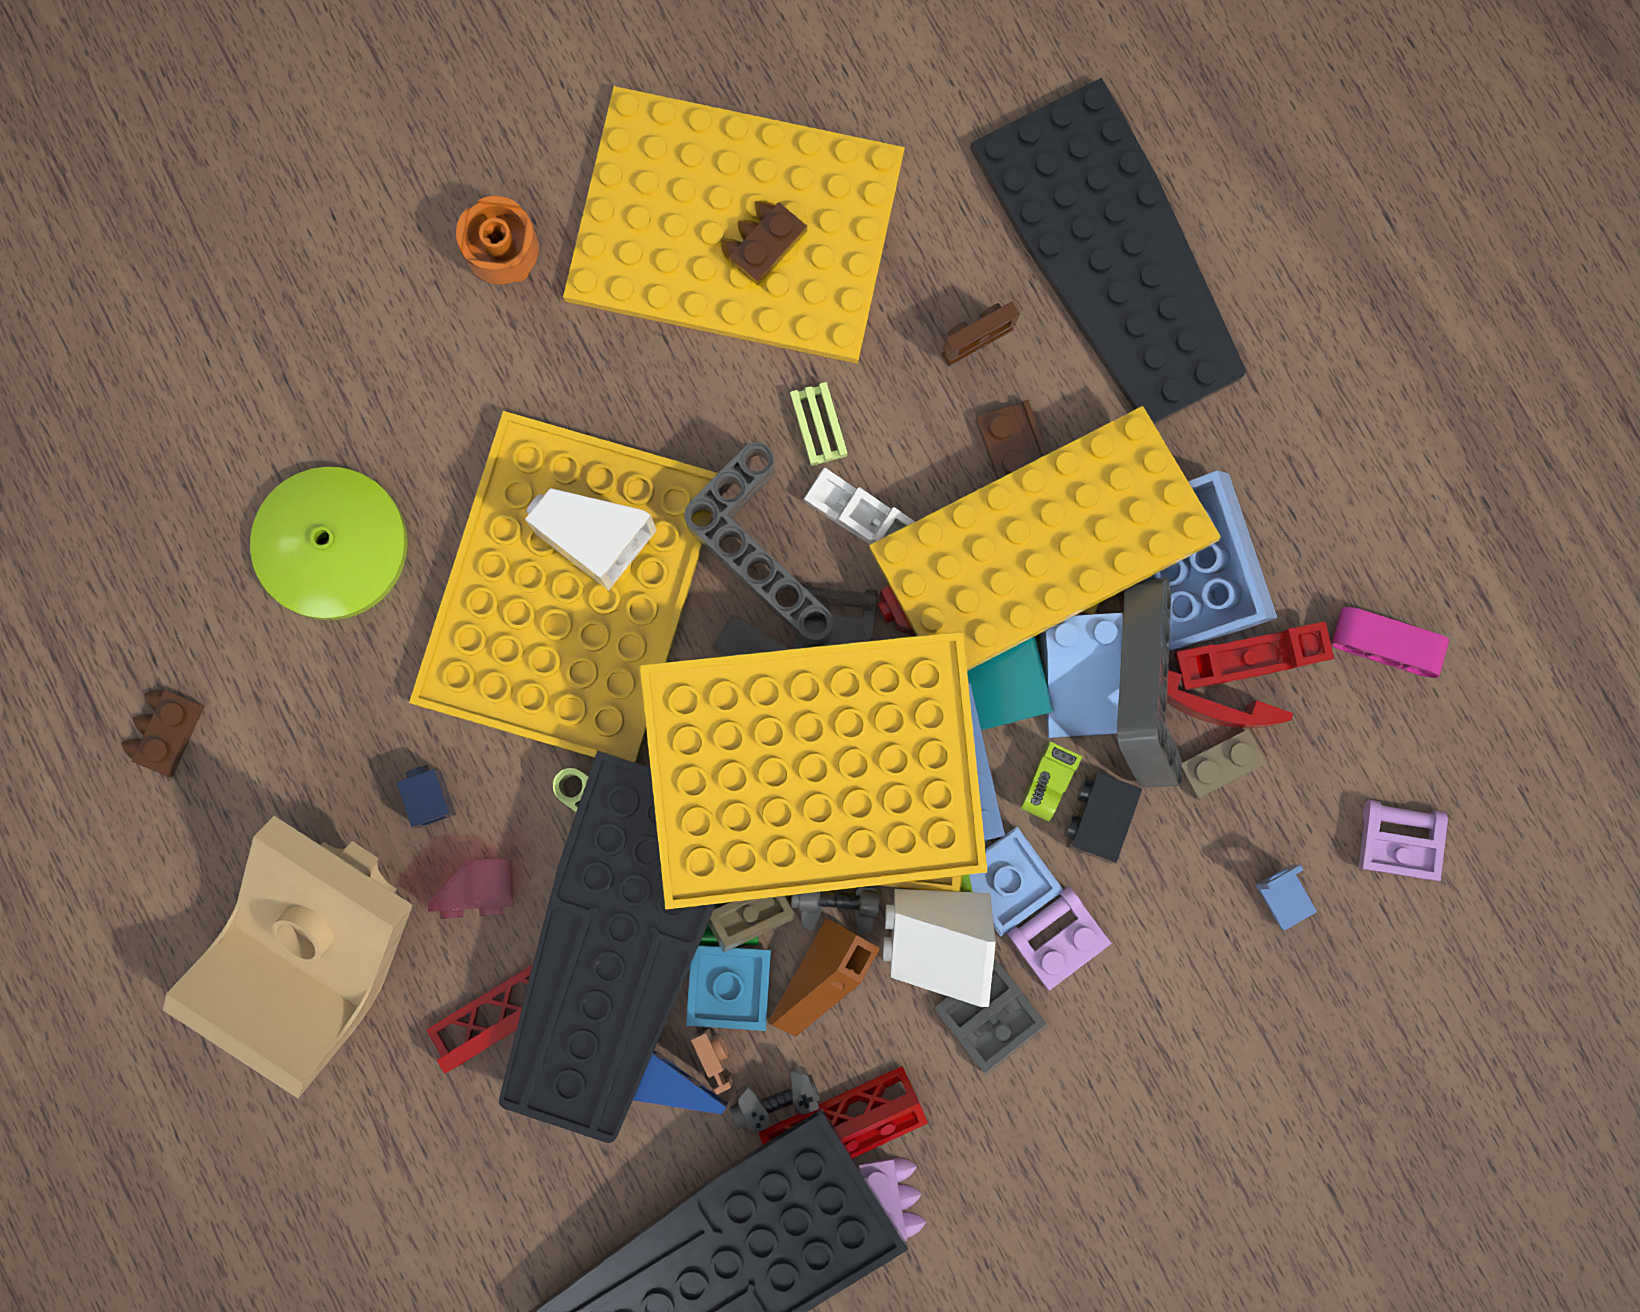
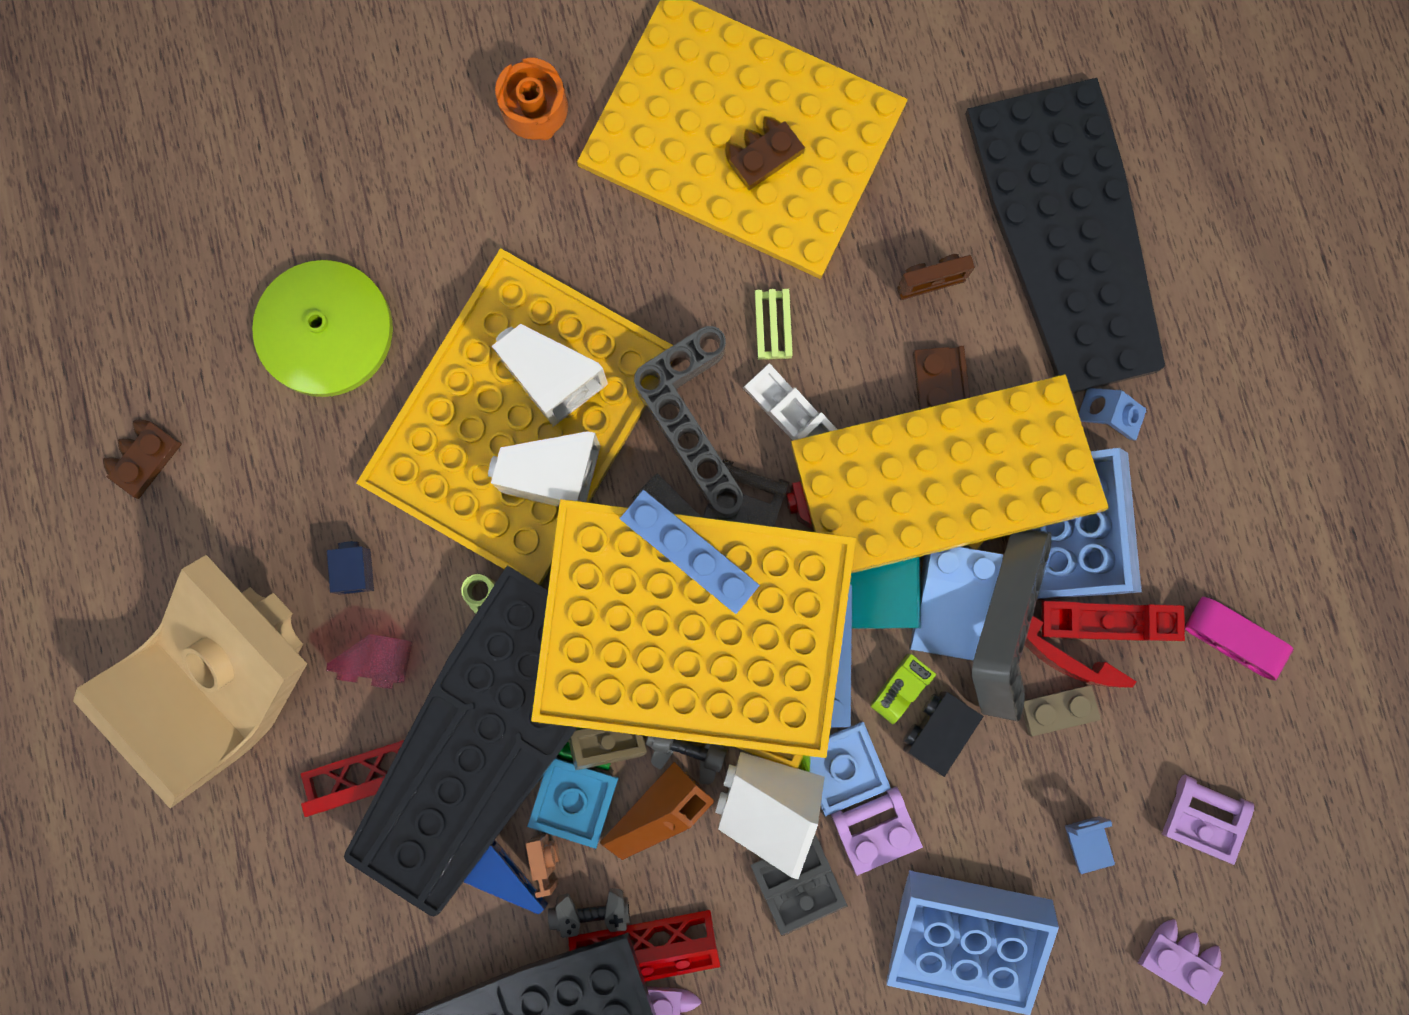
camera: 20 degrees right, 0 degrees up
(615, 637) = (547, 468): none -> white slope
(791, 688) = (689, 551): none -> medium blue plate
(1186, 1031) = (971, 942): none -> light blue slope
(1209, 432) = (1119, 411): none -> medium blue bracket
(1410, 998) = (1180, 963): none -> lavender plate

